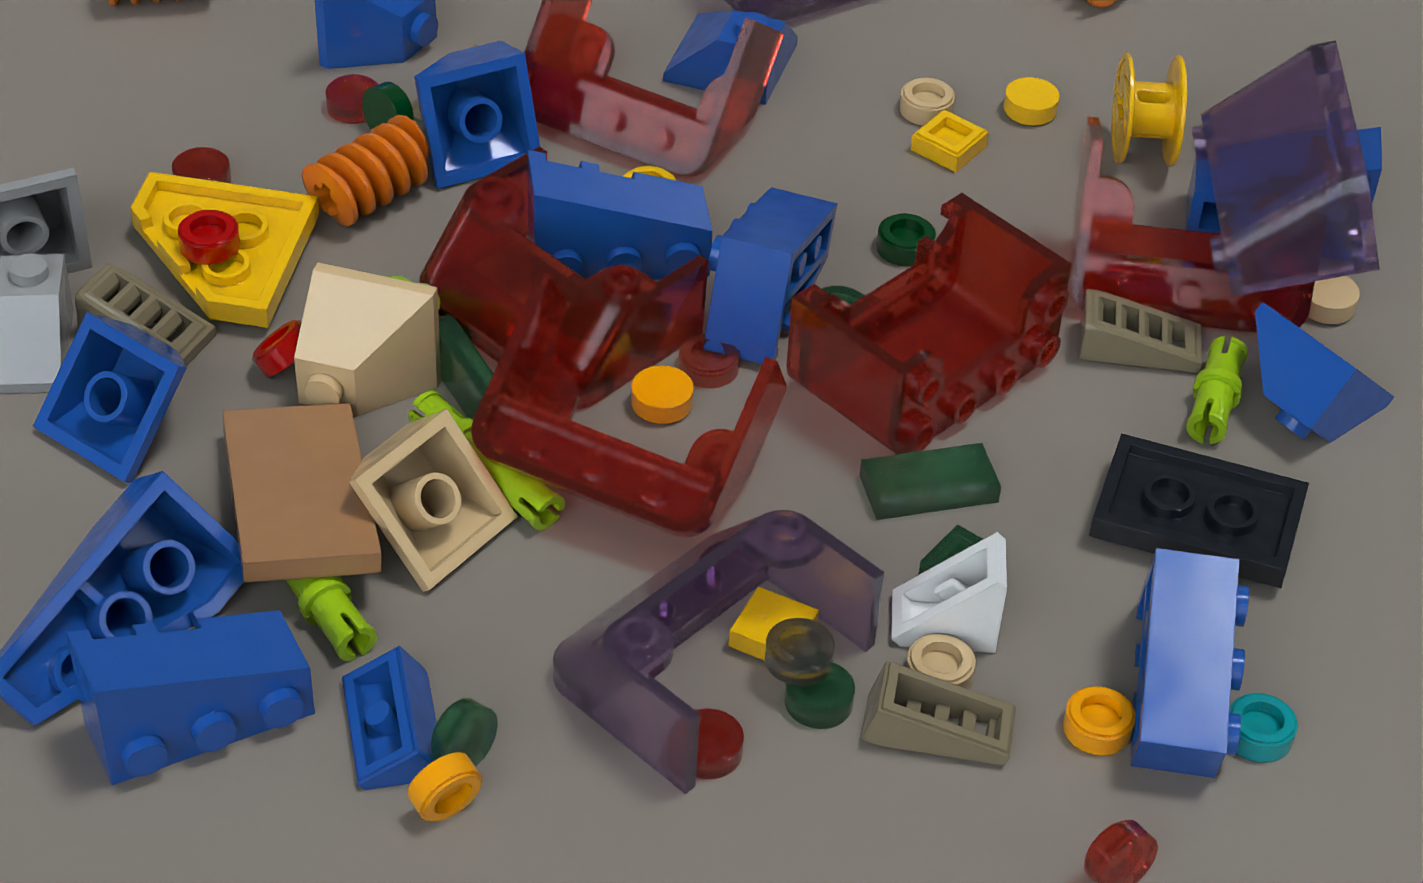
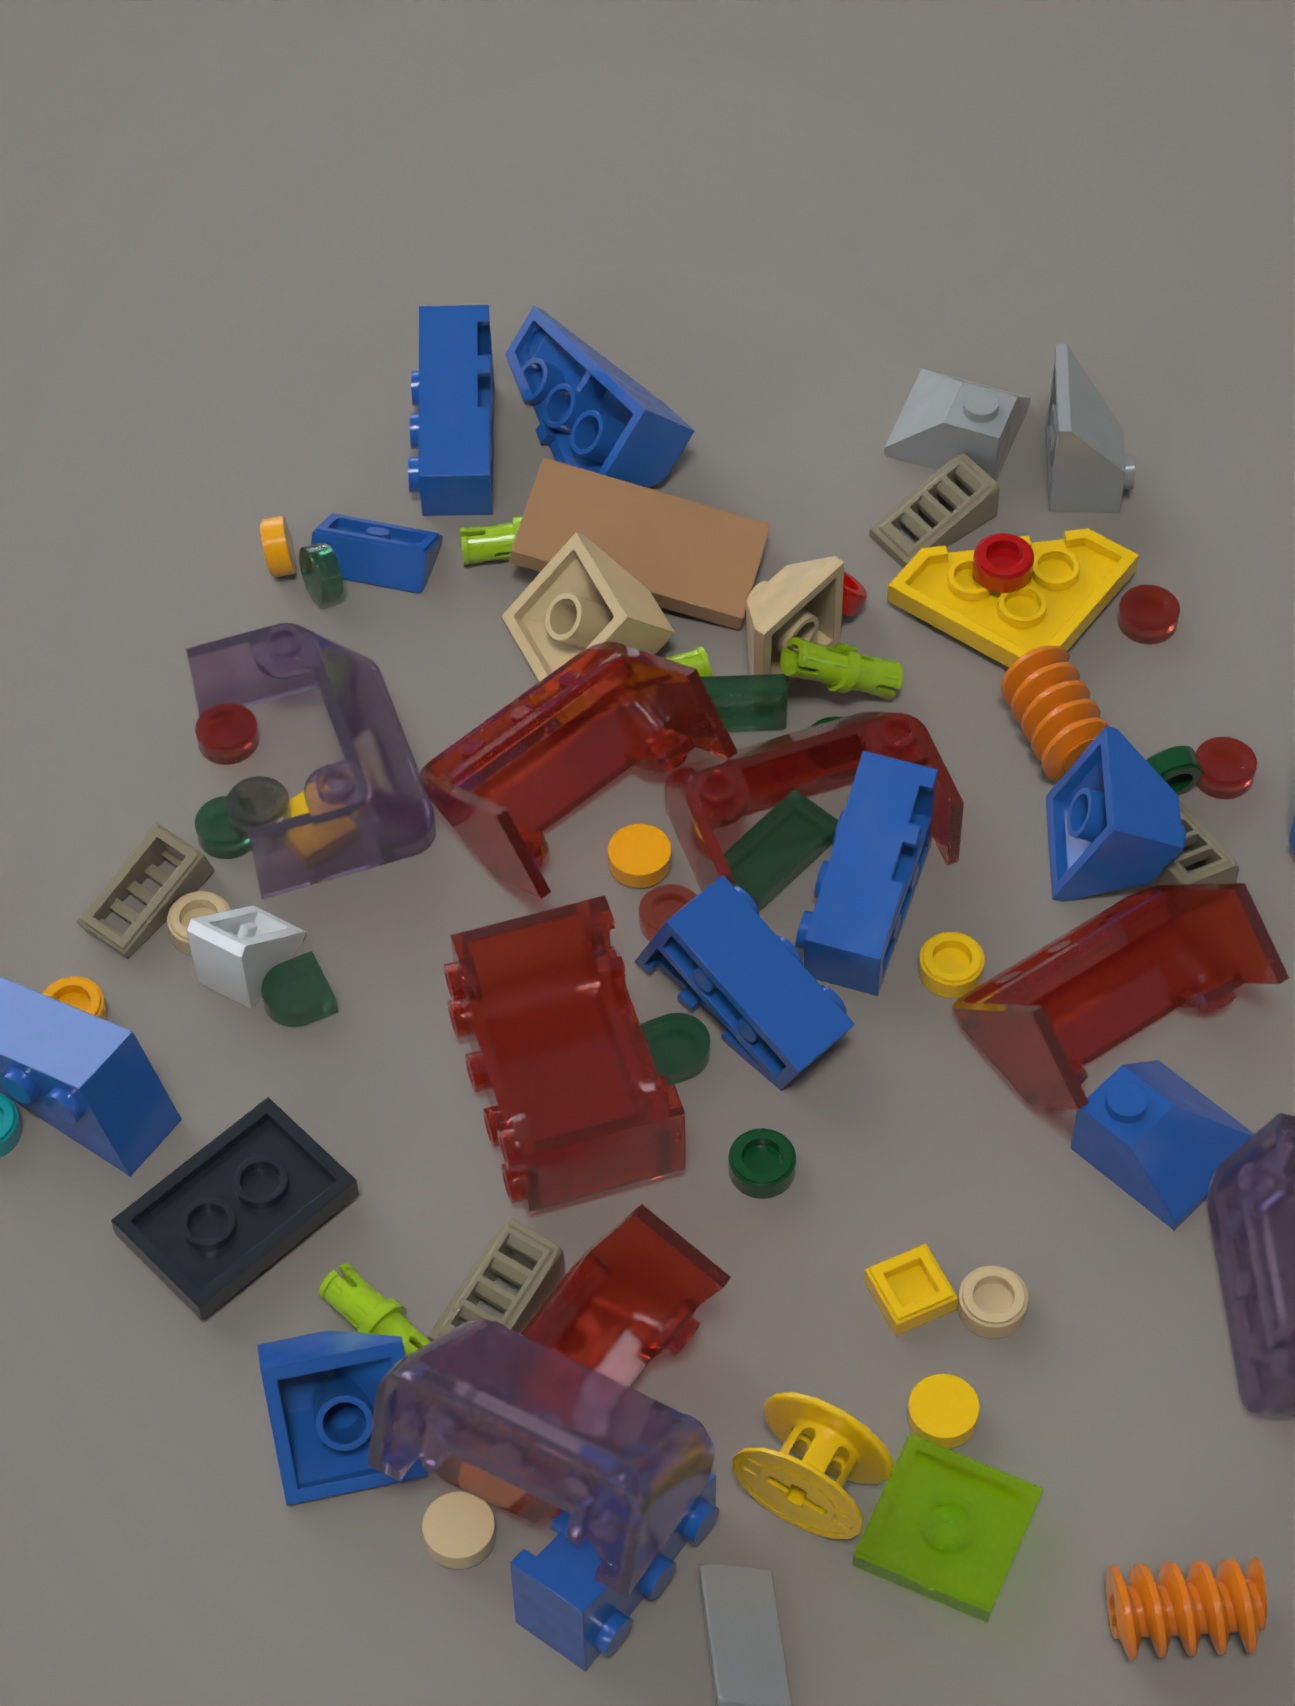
camera: 120 degrees right, 10 degrees up
(111, 394) = (836, 464): blue slope -> none
(929, 481) = (410, 1022): clear green tile -> none
(1091, 62) = (948, 1527): none -> clear neon green plate

